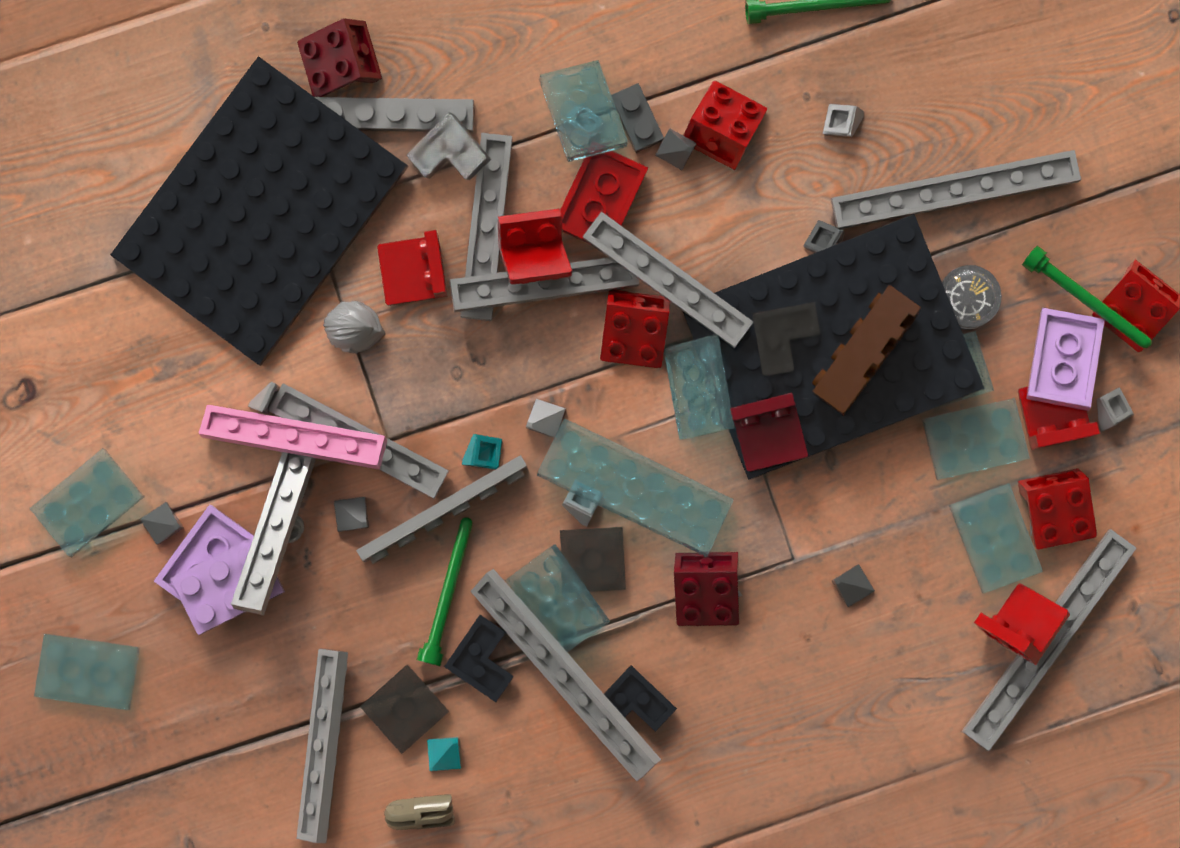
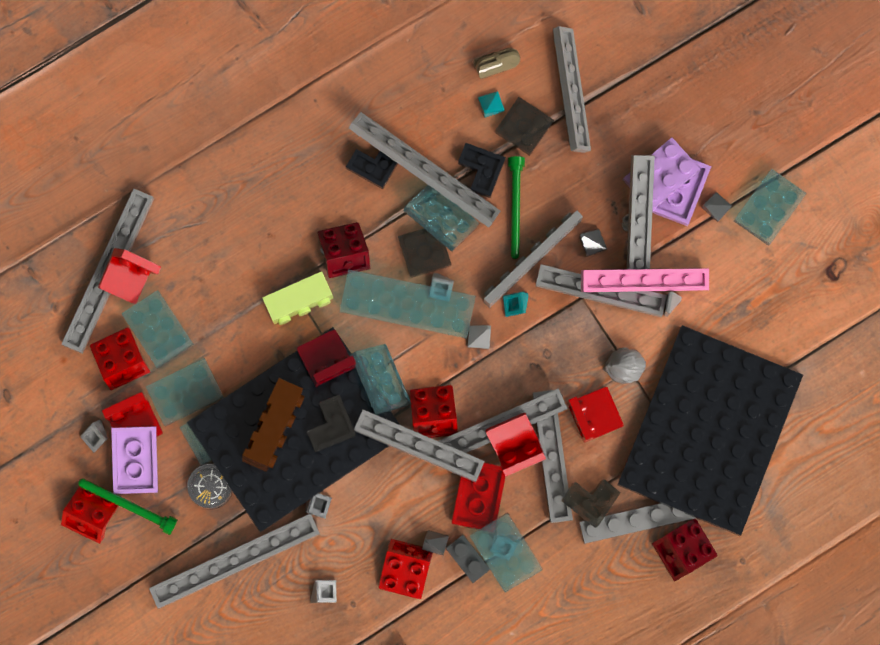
camera: 170 degrees right, 5 degrees down
(86, 671) = (738, 100): clear light blue plate -> none
(787, 532) = (298, 298): none -> yellowish green brick
(853, 585) = (246, 276): dark grey slope -> none

